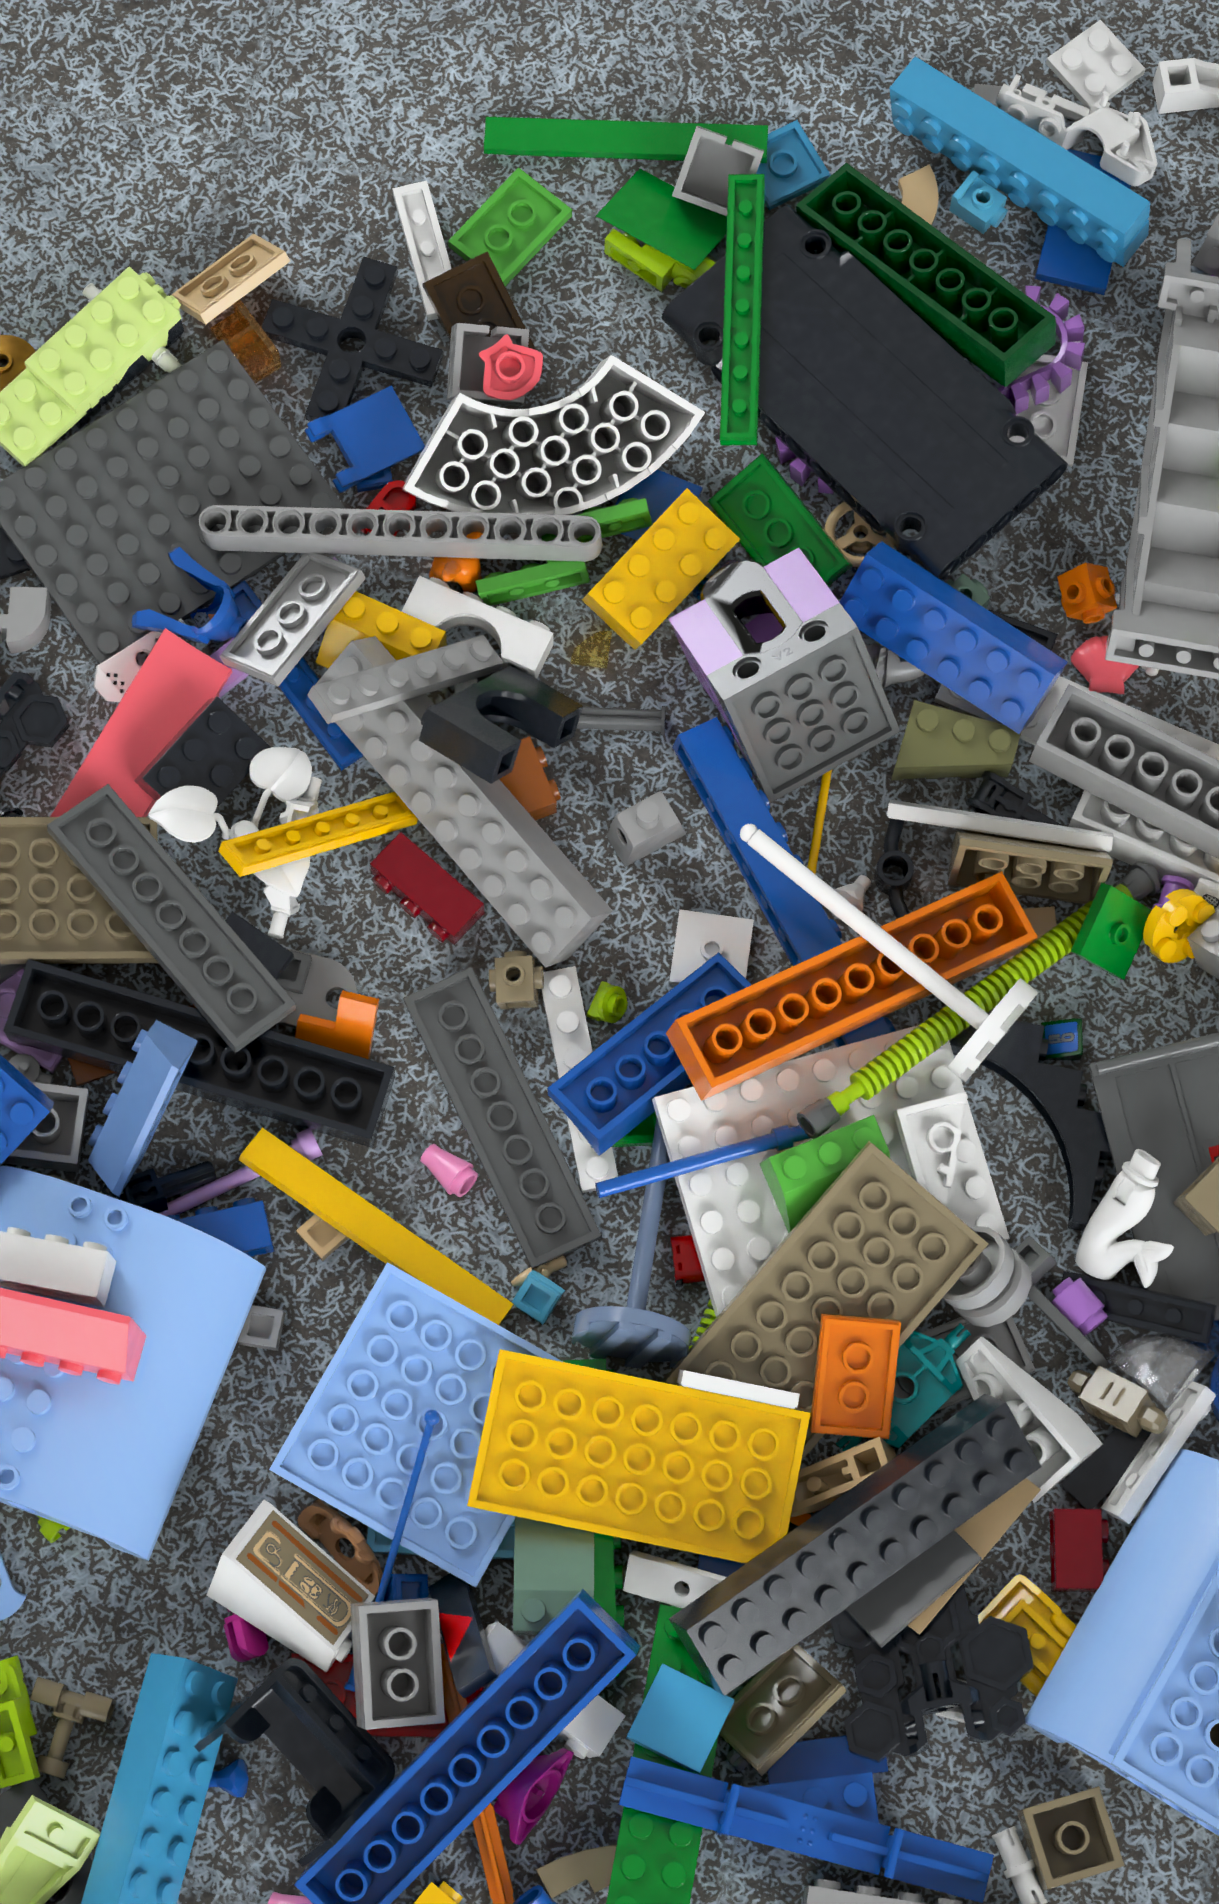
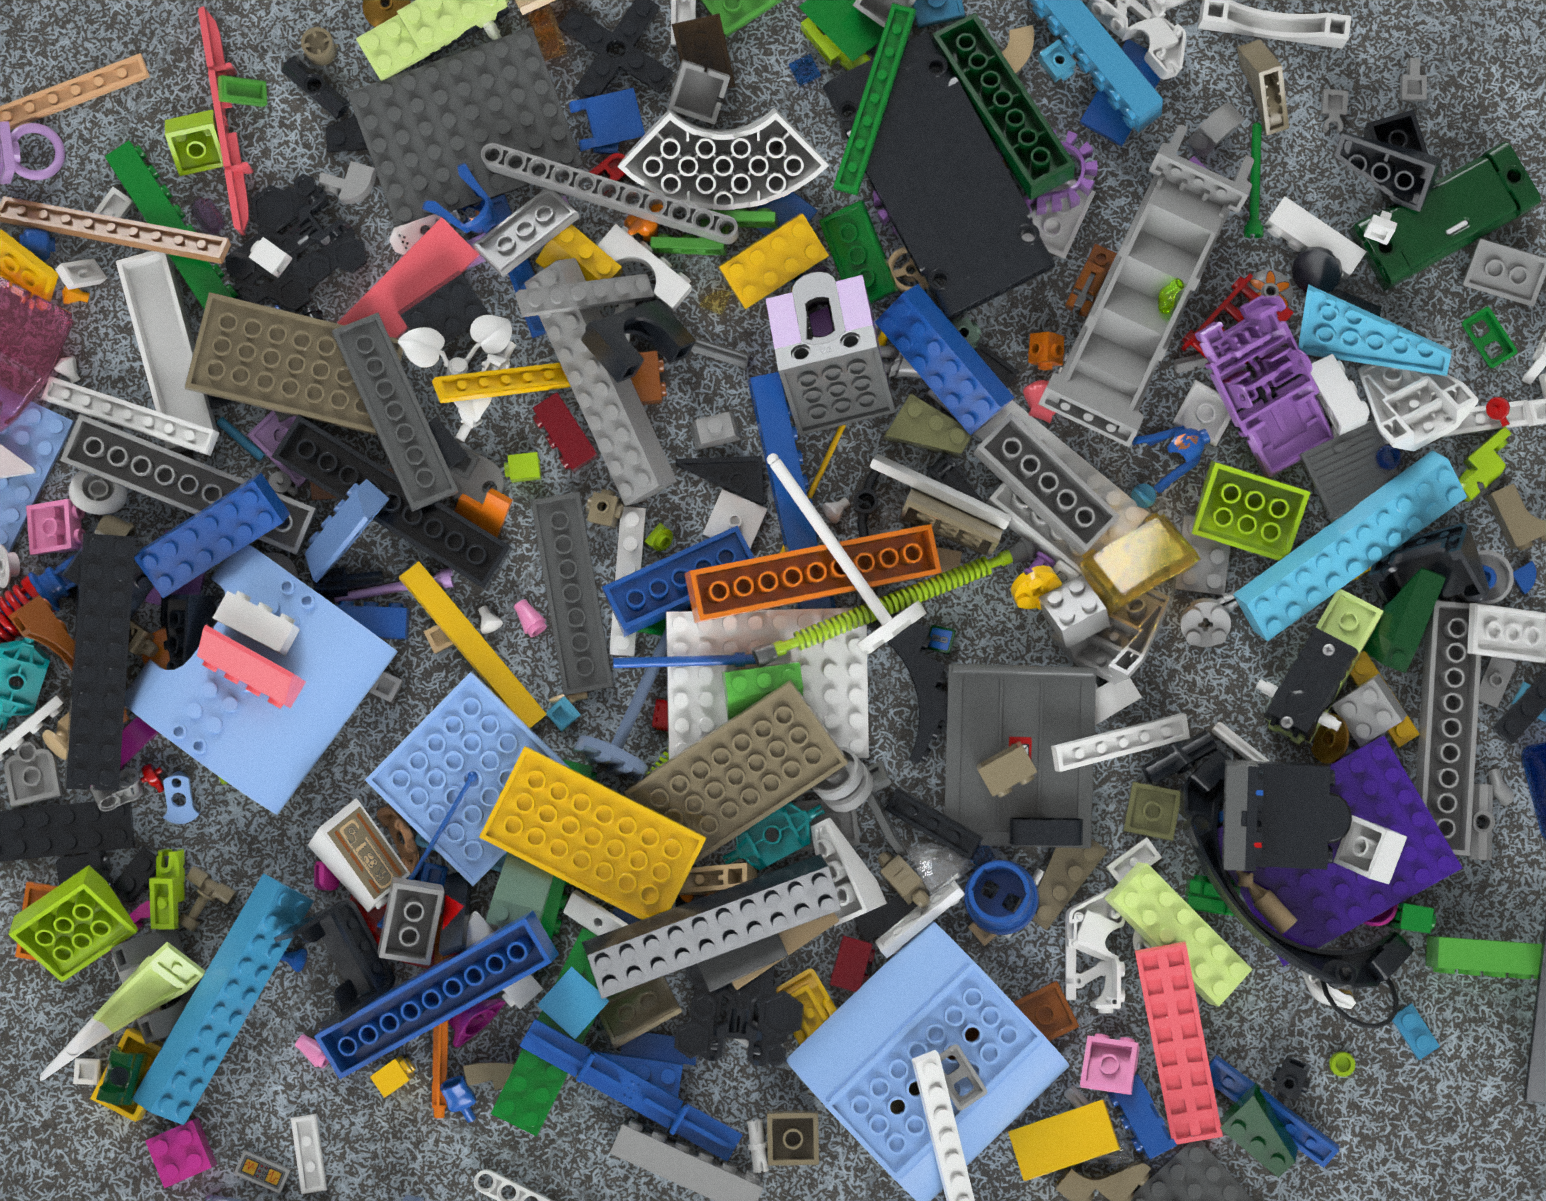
camera: 15 degrees right, 10 degrees up
(379, 954) = (523, 467): none -> lime brick
(389, 1191) = (489, 621): none -> white rock
(510, 369) = (710, 101): coral animal -> none
(627, 304) = (804, 70): none -> clear blue tile
(692, 883) = (735, 474): none -> black wing
(738, 1389) = (666, 810): white tile -> none
(855, 1376) = (742, 821): orange tile -> none
(930, 1141) = (833, 686): white wing -> none
(1079, 1305) = (897, 813): medium lavender brick -> none
(1111, 931) = (991, 580): green plate -> none
(1119, 482) = (1090, 279): none -> dark orange plate
(1119, 1211) = (939, 762): white piece -> none

